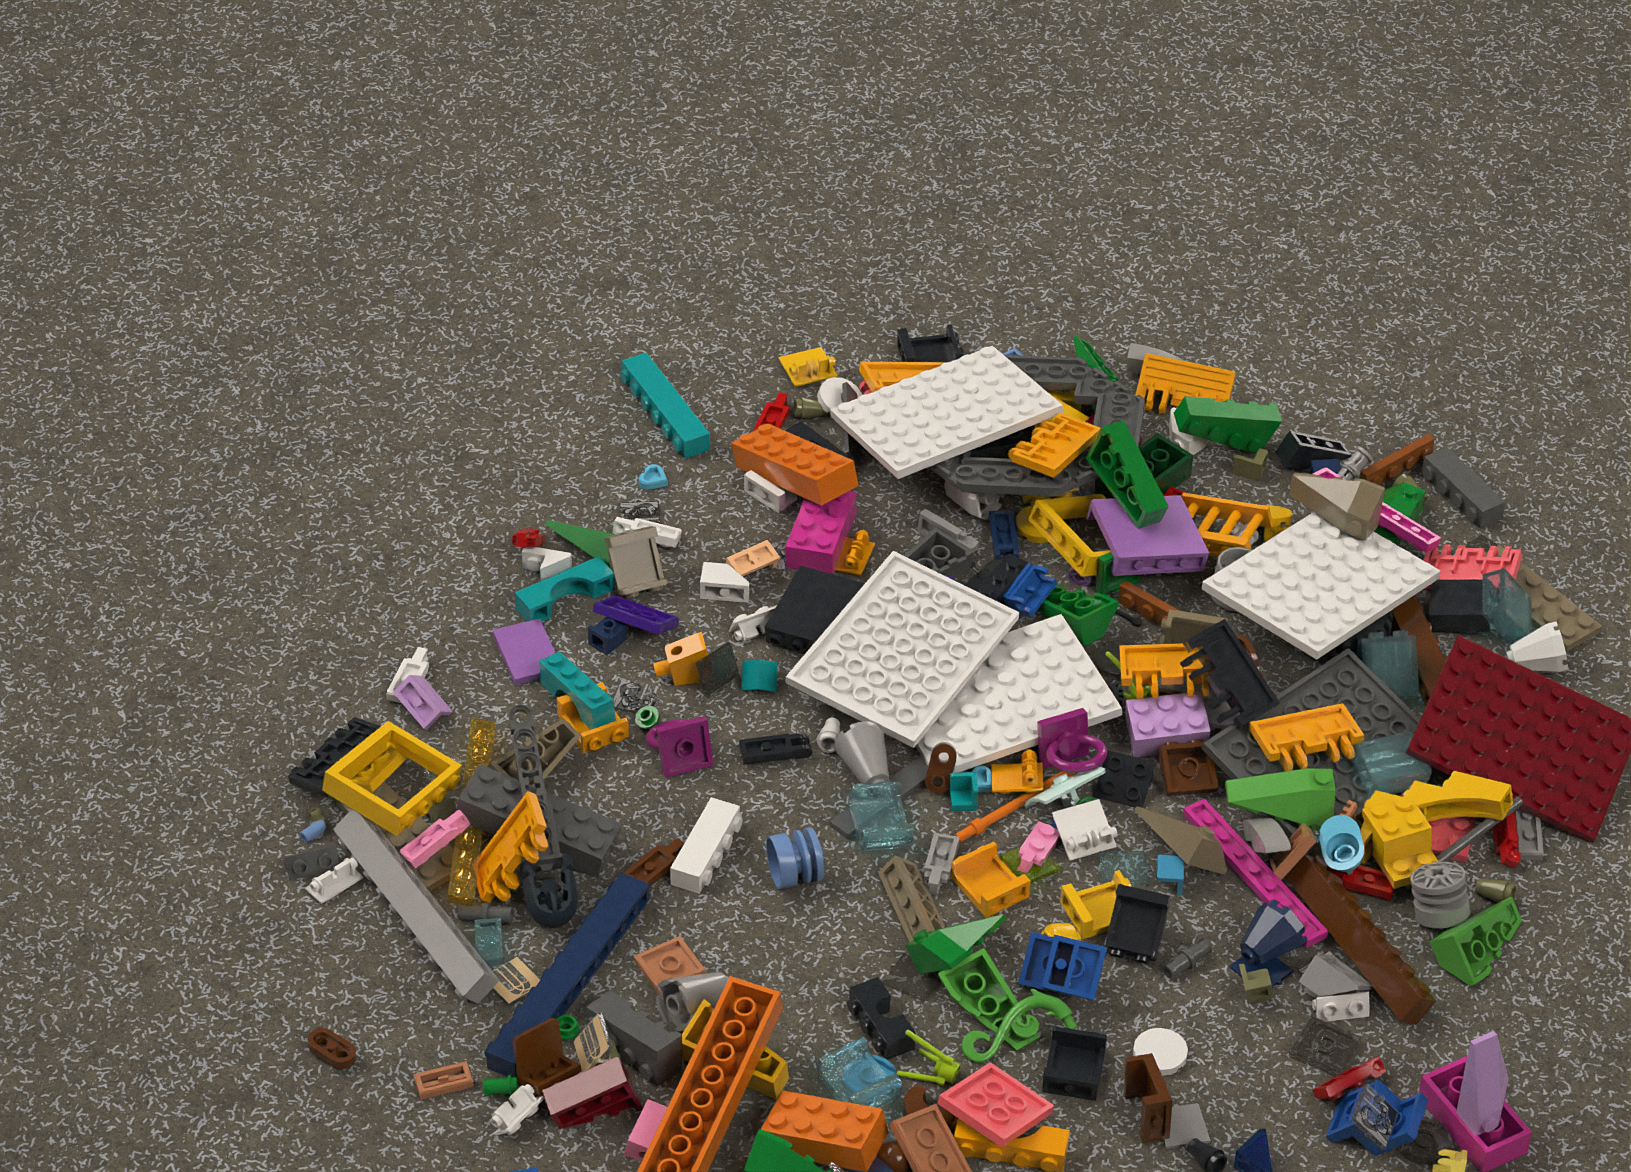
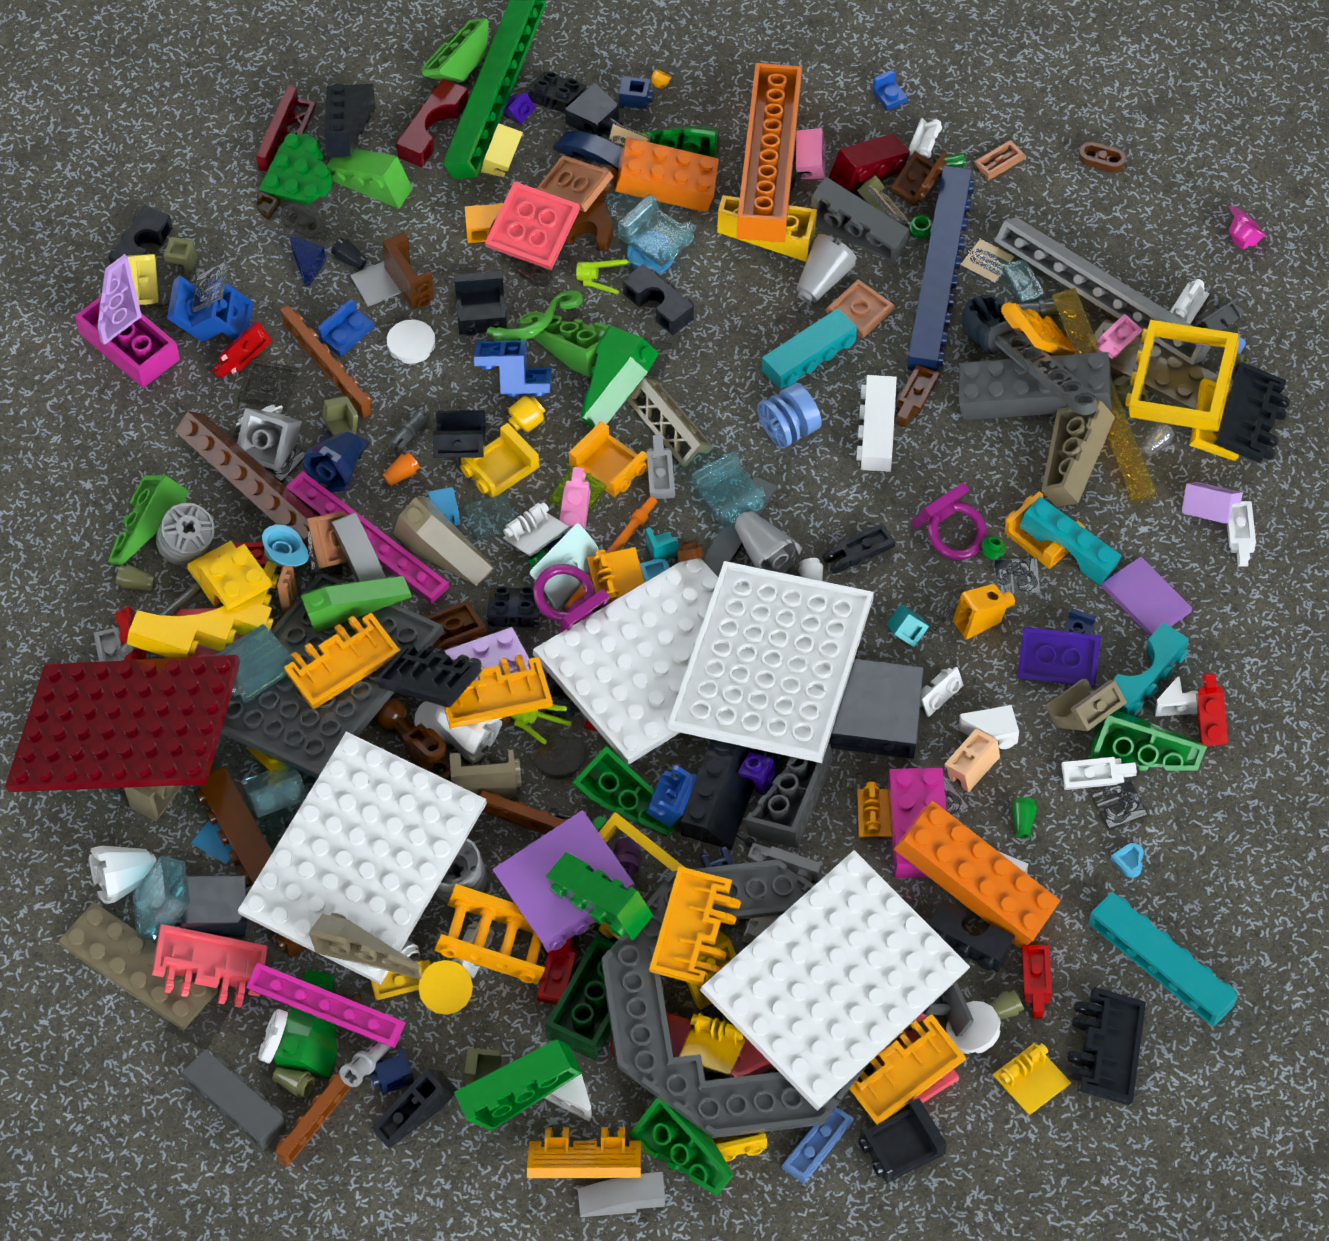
camera: 165 degrees right, 15 degrees up
(229, 930) = (1244, 229): none -> dark pink piece
(726, 521) = (1023, 816): none -> green cone
(734, 368) = (1113, 1041): none -> black hinge
(743, 930) = (809, 349): none -> teal brick
(1203, 924) = (401, 469): none -> orange cone
(1229, 1079) = (344, 328): none -> blue bracket
(1262, 1051) = (322, 356): none -> dark orange plate
(1422, 505) = (273, 1035): none -> white tile

